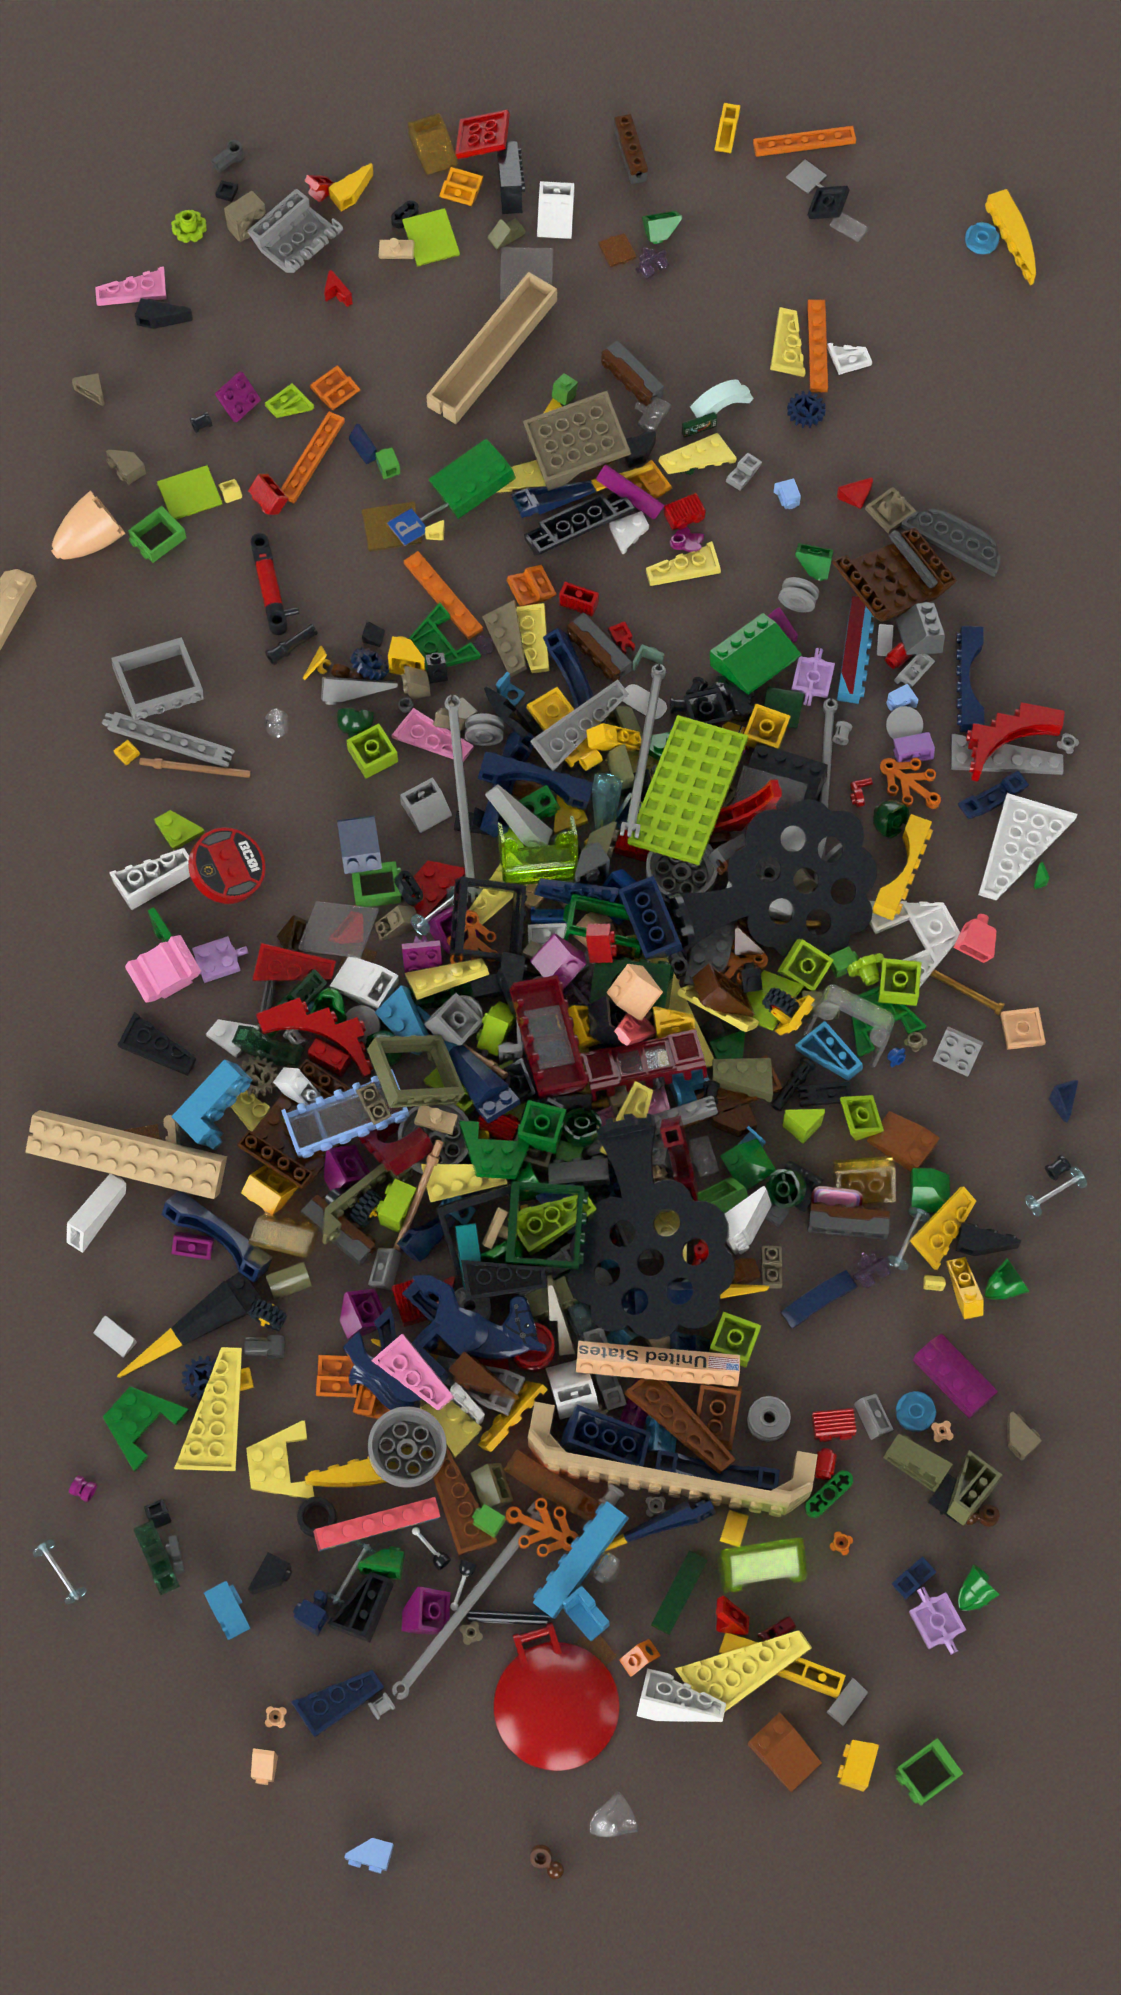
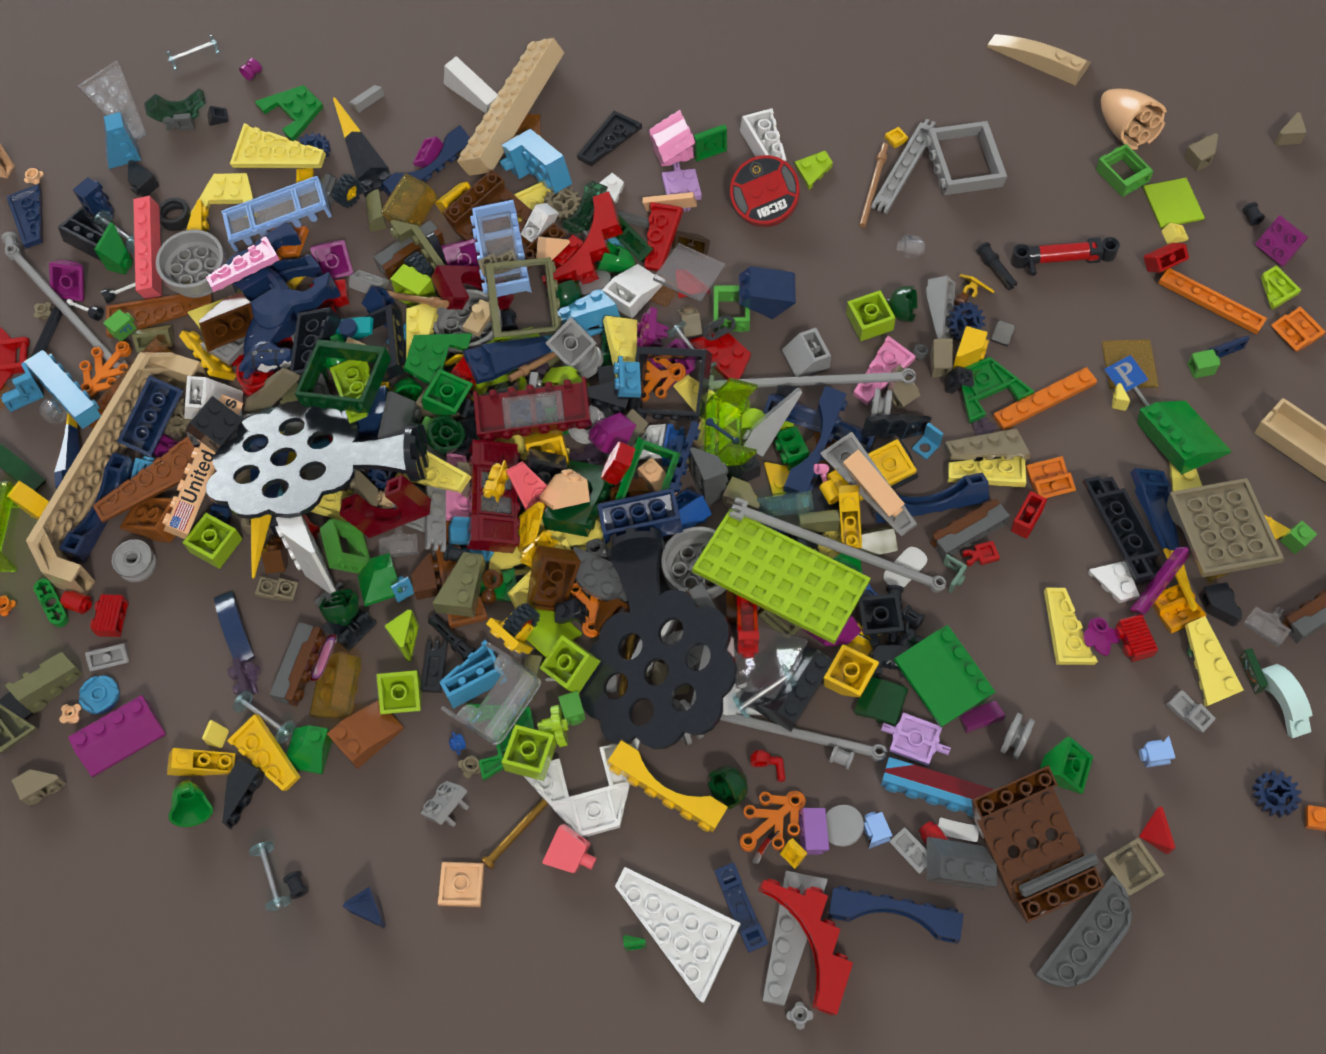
camera: 105 degrees right, 5 degrees down
(139, 1657) = (112, 95): none -> clear wing
(246, 964) = (683, 200): none -> light nougat tile
(311, 1386) = (274, 210): none -> light blue window
(333, 1067) = (550, 247): none -> light nougat slope
(474, 1246) = (348, 327): none -> dark blue tile
(496, 954) = (627, 378): none -> dark azure bracket
(536, 870) = (709, 422): none -> dark blue hinge
(570, 769) = (821, 469): none -> bright pink hand
(587, 715) = (873, 484): none -> light nougat slope
(619, 1350) = (214, 424): none -> black brick
(628, 1054) = (497, 487): none -> yellow hinge
(702, 1016) = (543, 539): none -> yellow hinge
(735, 1052) = (489, 596): none -> reddish brown plate
(787, 771) = (742, 706): none -> axle
(934, 785) = (756, 859): none -> sticker
(937, 760) = (793, 853): none -> yellow tile

